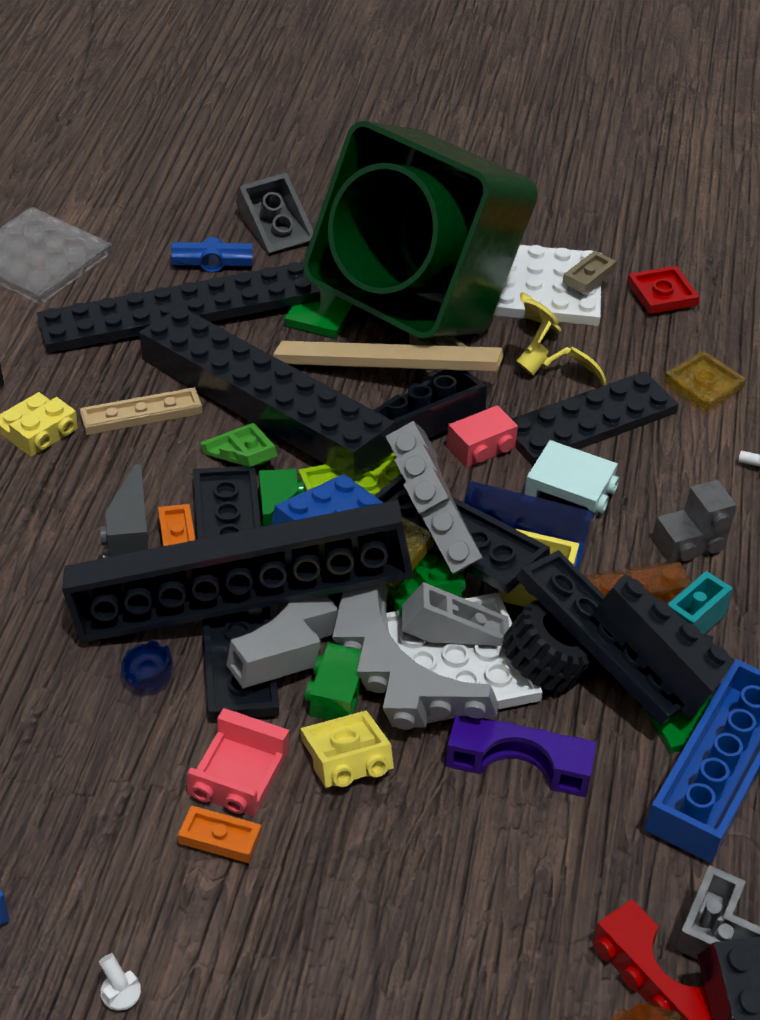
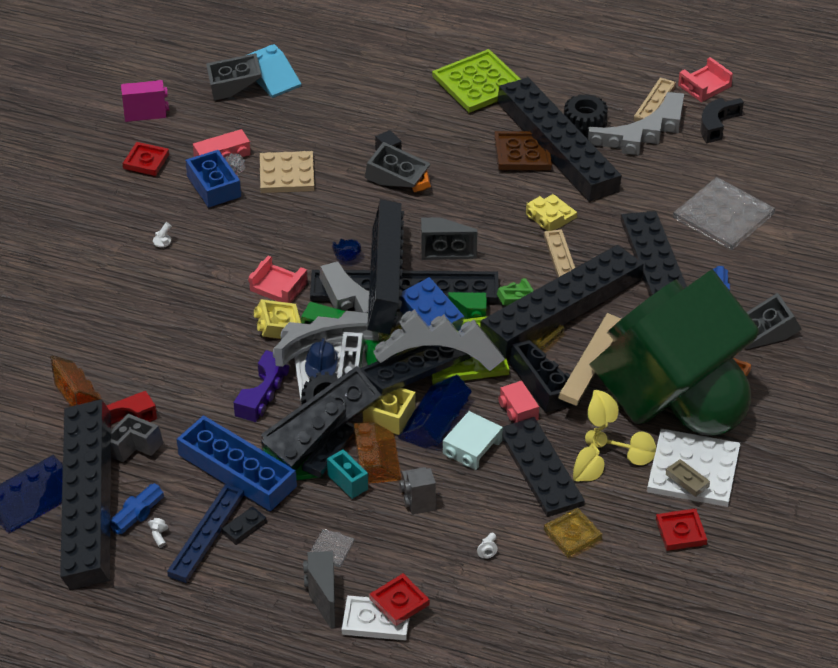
camera: 100 degrees right, 0 degrees up
(176, 524) = (449, 263): orange plate -> none
(219, 834) = (237, 273): orange plate -> none
(453, 661) = (321, 359): none -> dark blue piece

